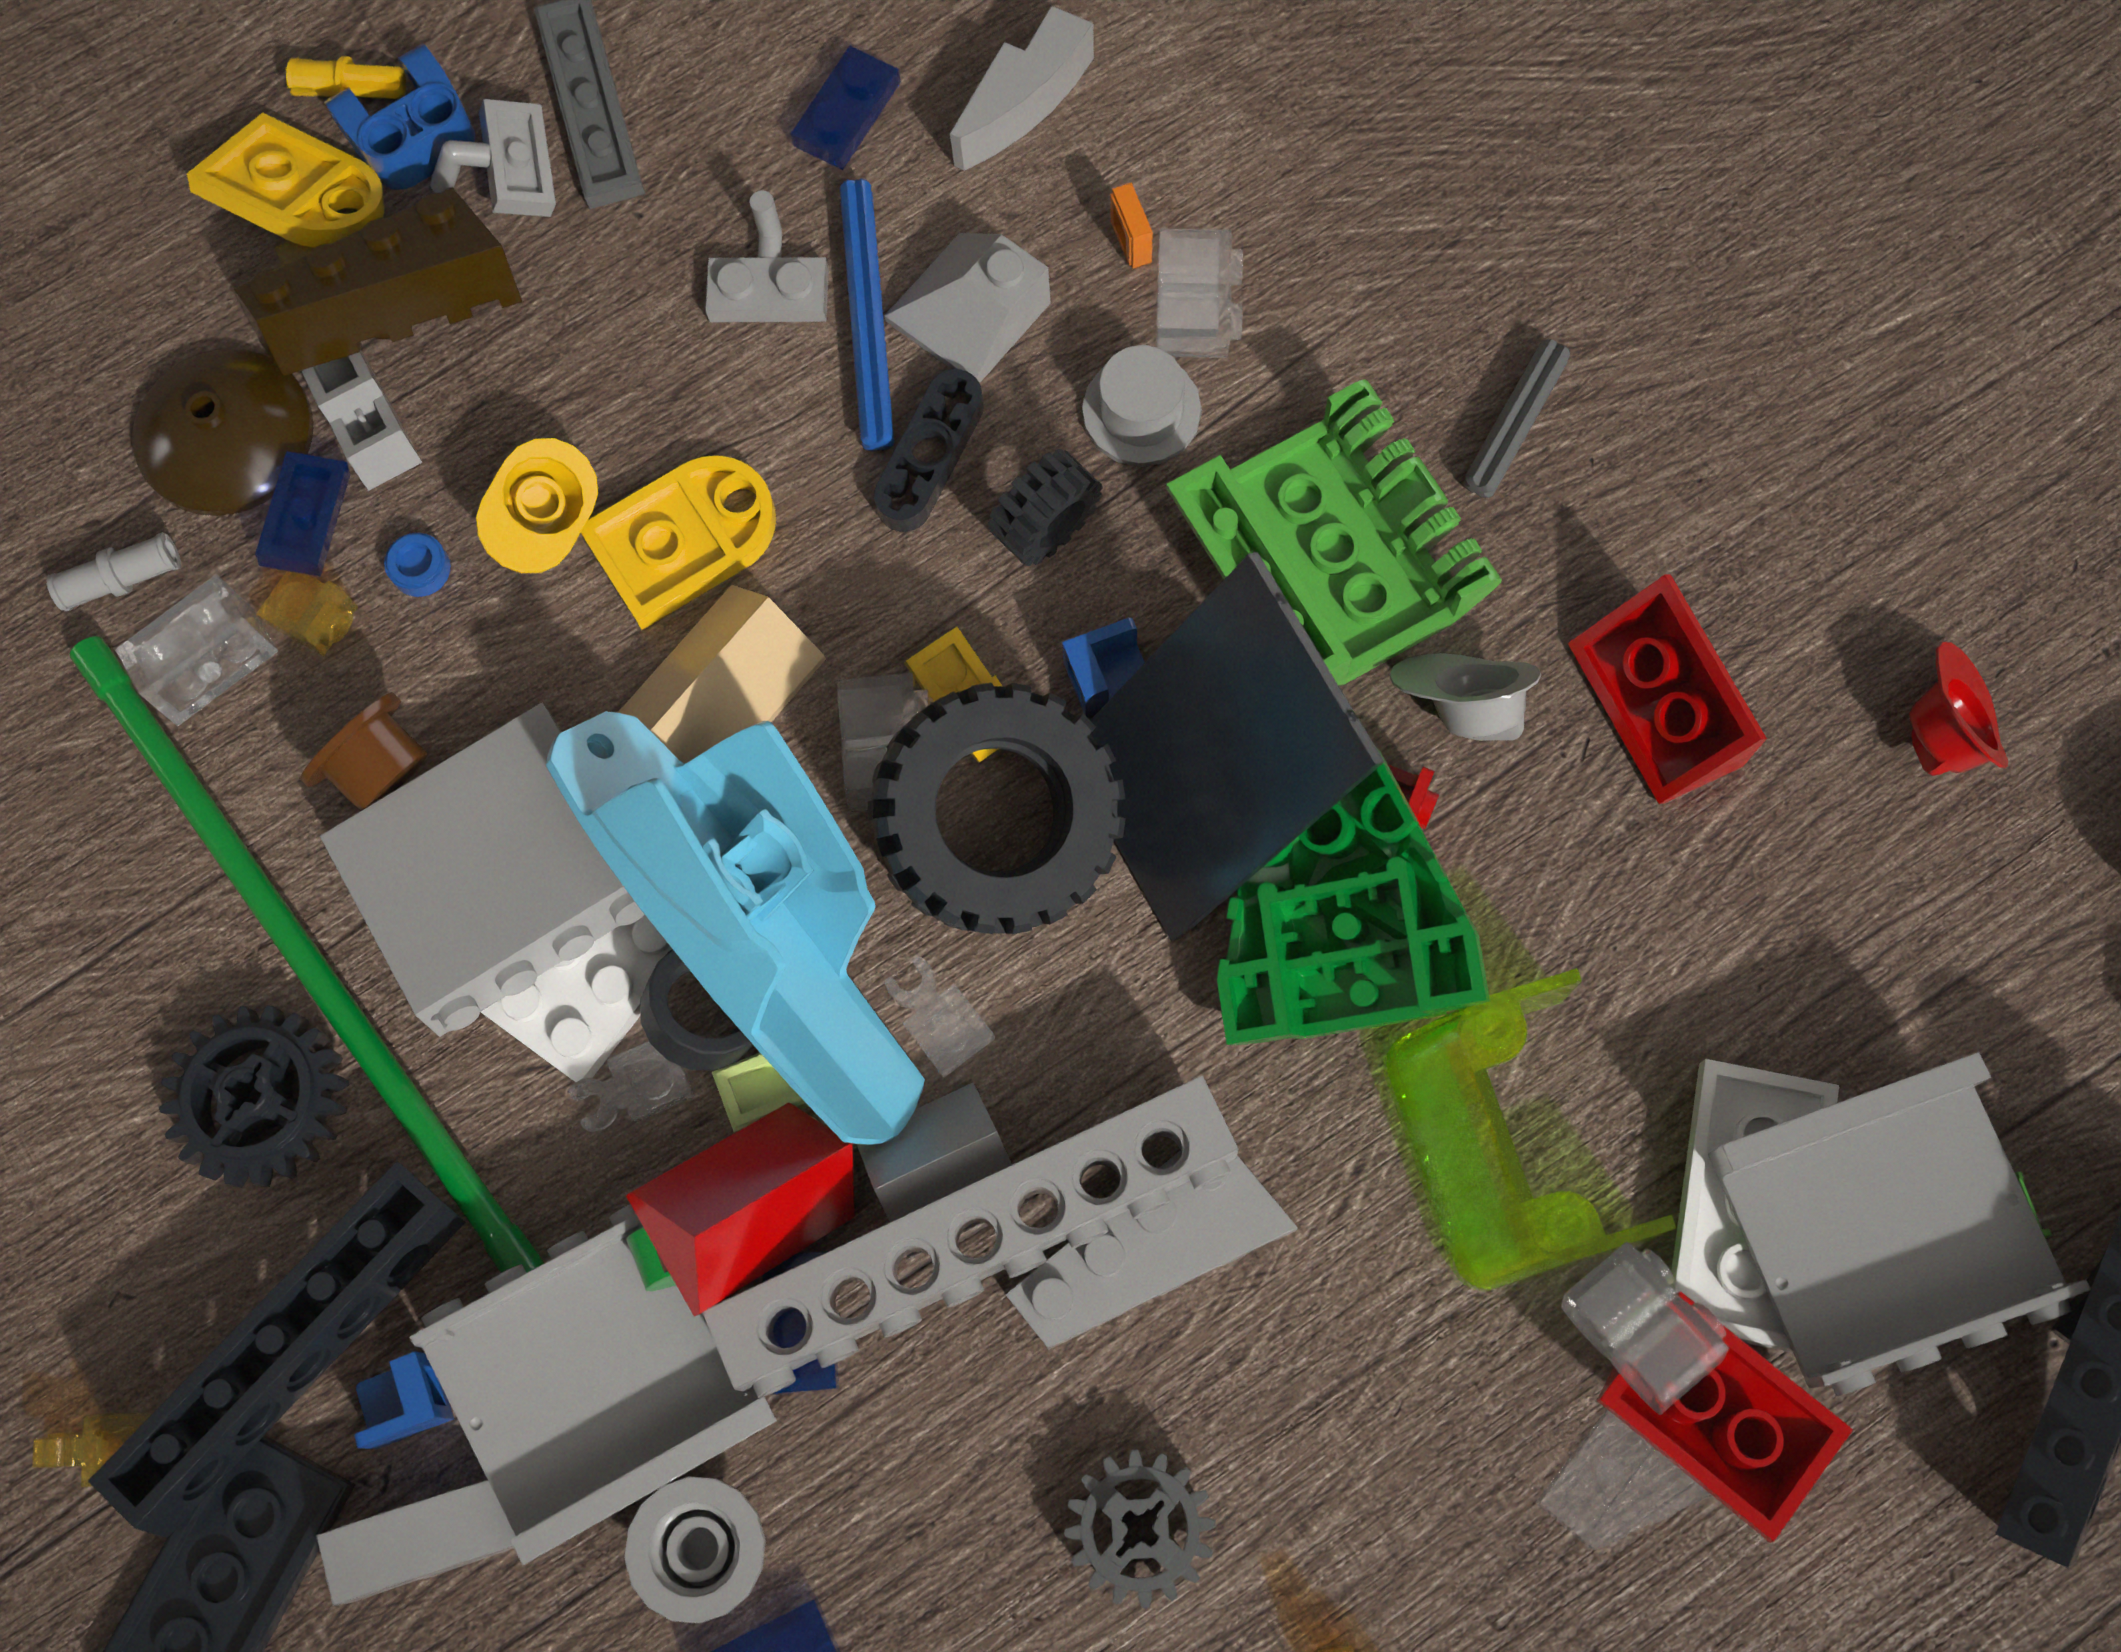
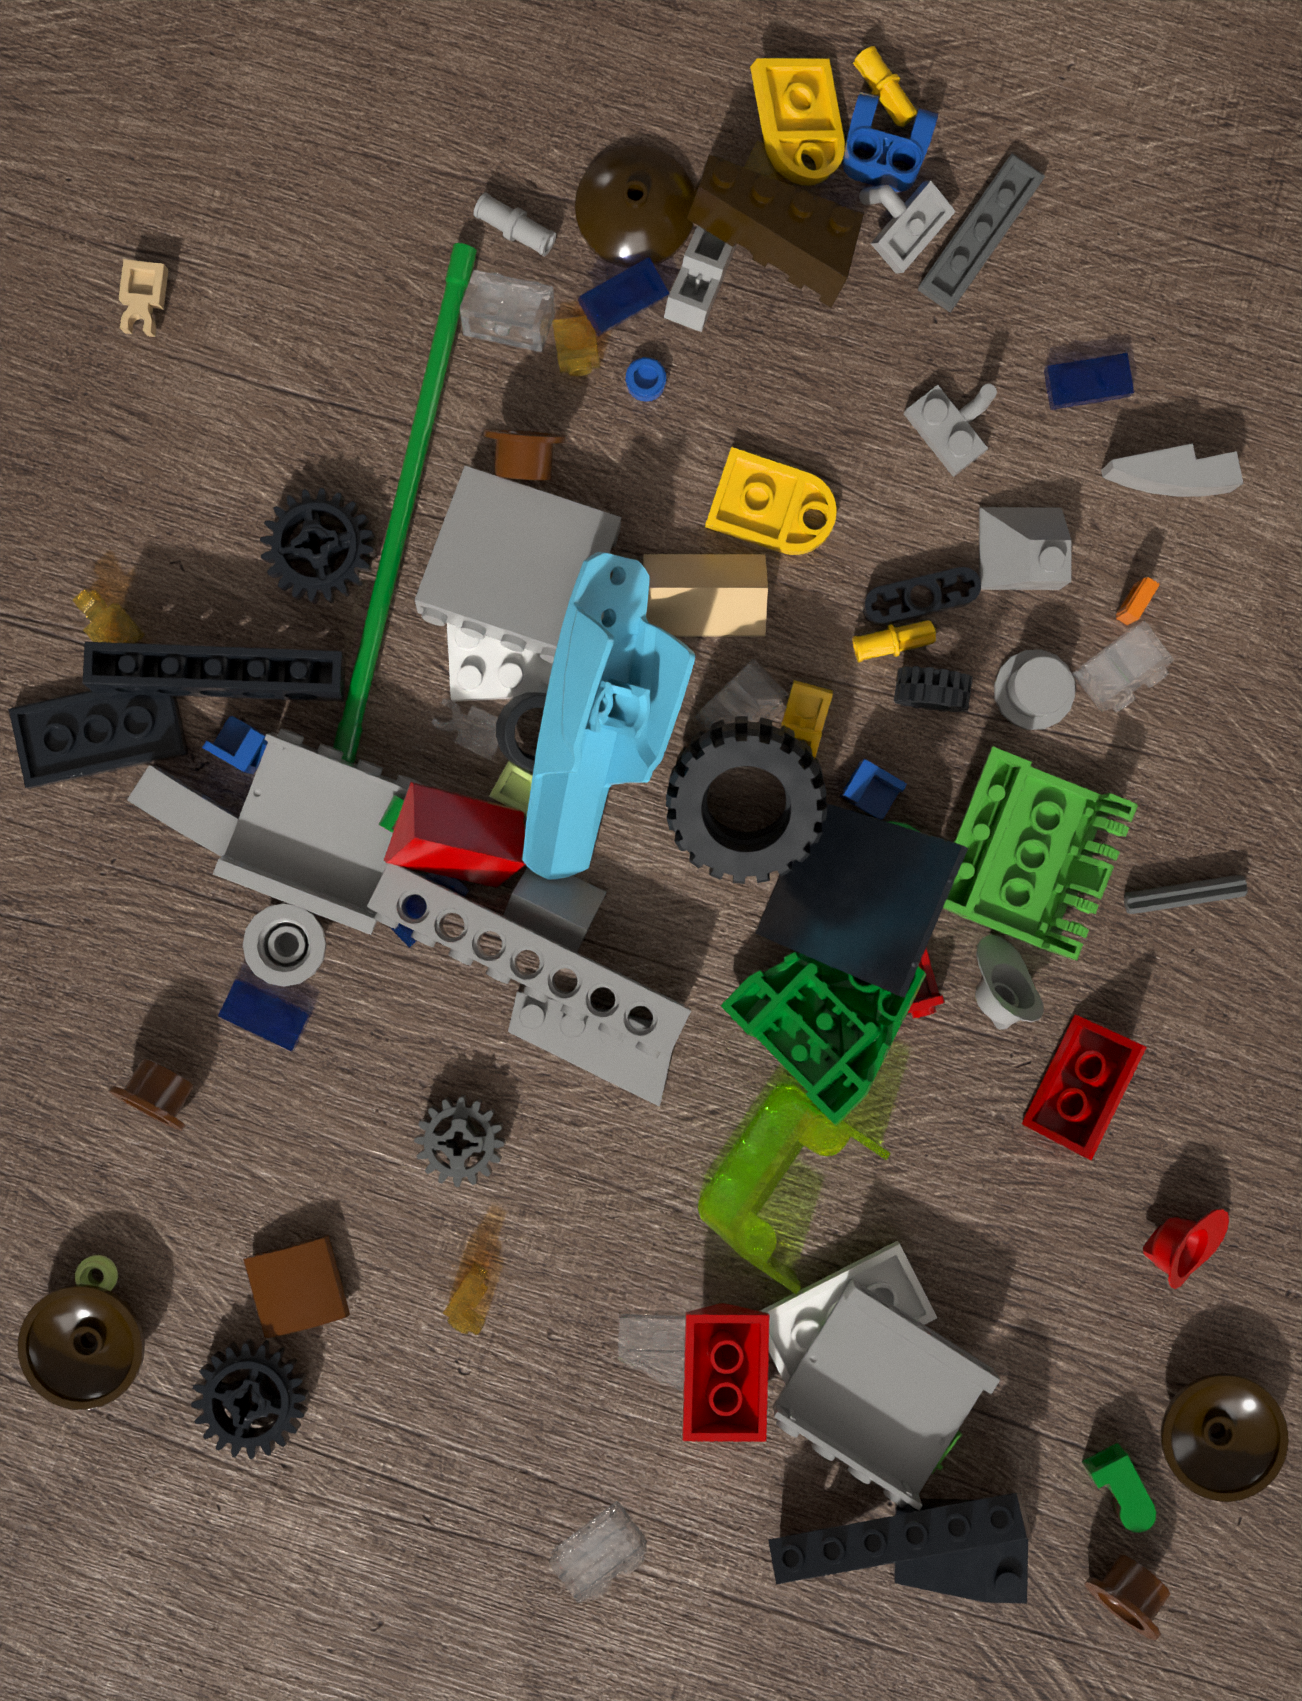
camera: 50 degrees right, 15 degrees up
(537, 505) = (722, 421): yellow piece -> none
(866, 315) = (973, 496): blue axle -> none
(943, 1024) = (622, 856): clear plate -> none
(953, 517) = (894, 640): none -> yellow axle
(1645, 1326) = (736, 1313): clear brick -> none

